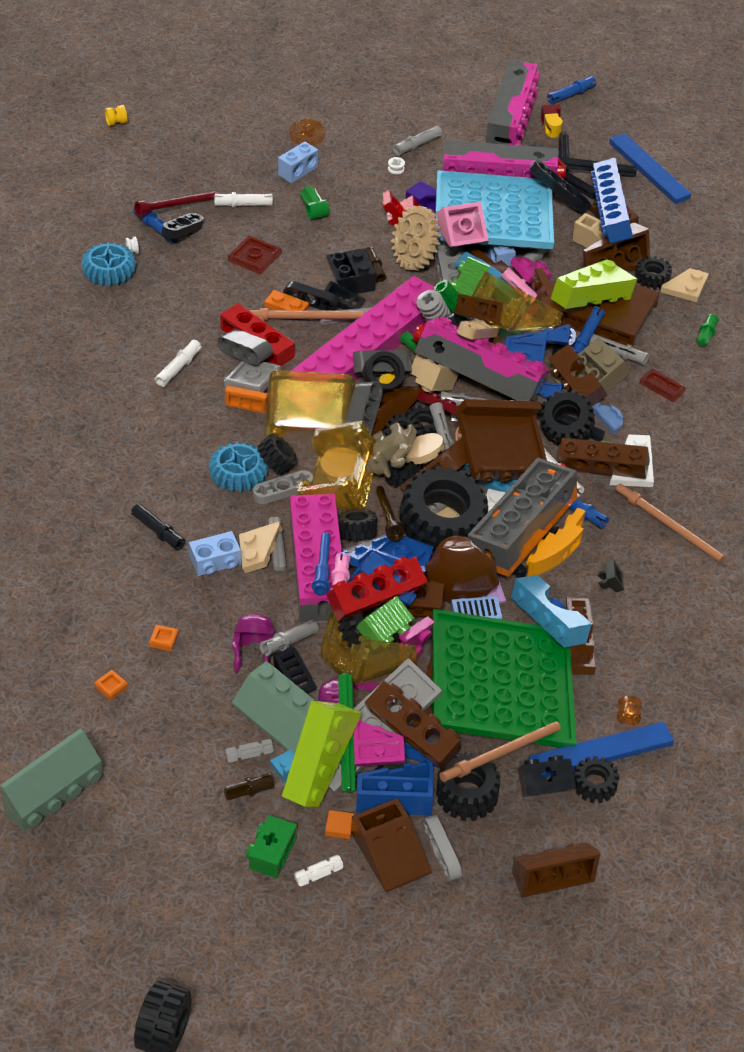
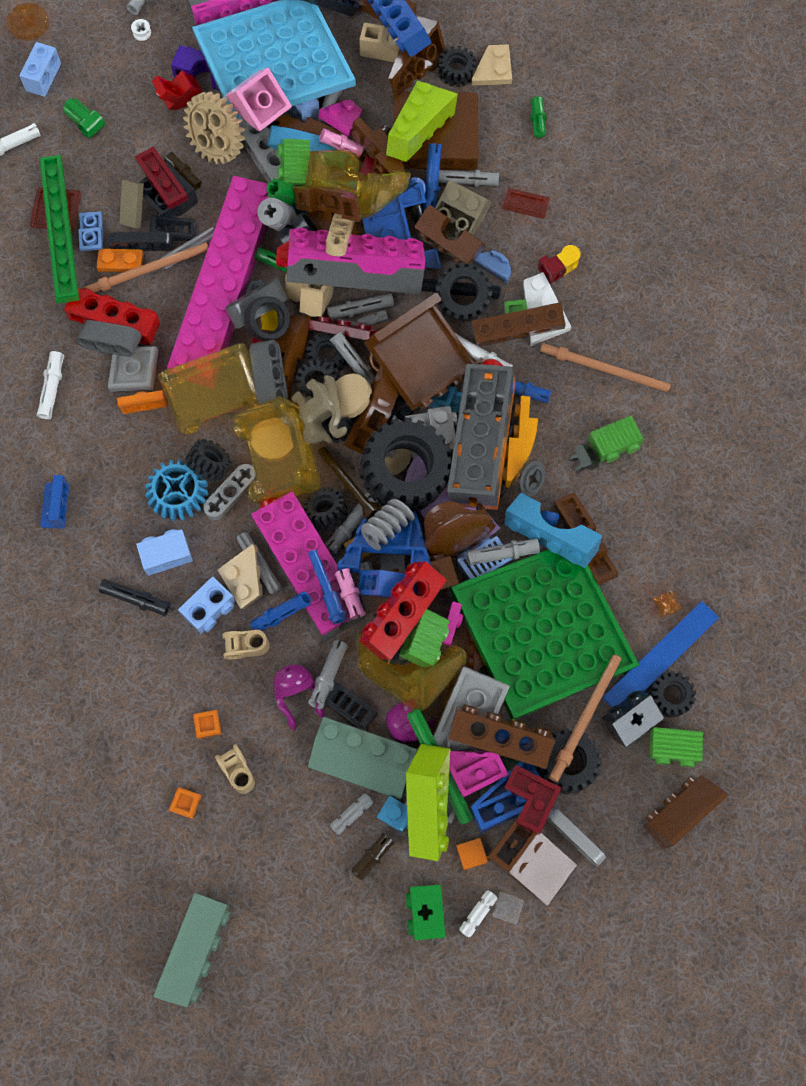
camera: 25 degrees left, 25 degrees up
(134, 438) = (55, 503): none -> blue bracket
(169, 678) = (233, 766): none -> tan piece
(202, 504) = (164, 551): none -> light blue brick
(232, 593) = (239, 644): none -> tan piece
(248, 264) = (59, 229): none -> green tile
(254, 583) = (273, 616): none -> blue pin
(274, 277) = (91, 231): none -> medium blue slope
(318, 266) = (131, 203): none -> dark tan tile
(348, 876) = (508, 908): none -> clear plate
(352, 253) = (161, 178): none -> dark red plate
(401, 536) = (384, 521): none -> light grey piece
(420, 786) = (539, 796): none -> dark red plate
(496, 606) = (510, 550): none -> light grey pin
(561, 571) = (537, 473): none -> dark grey gear
(576, 818) = (675, 746): none -> bright green brick
(648, 573) = (616, 439): none -> bright green brick
(668, 434) = (559, 264): none -> leg

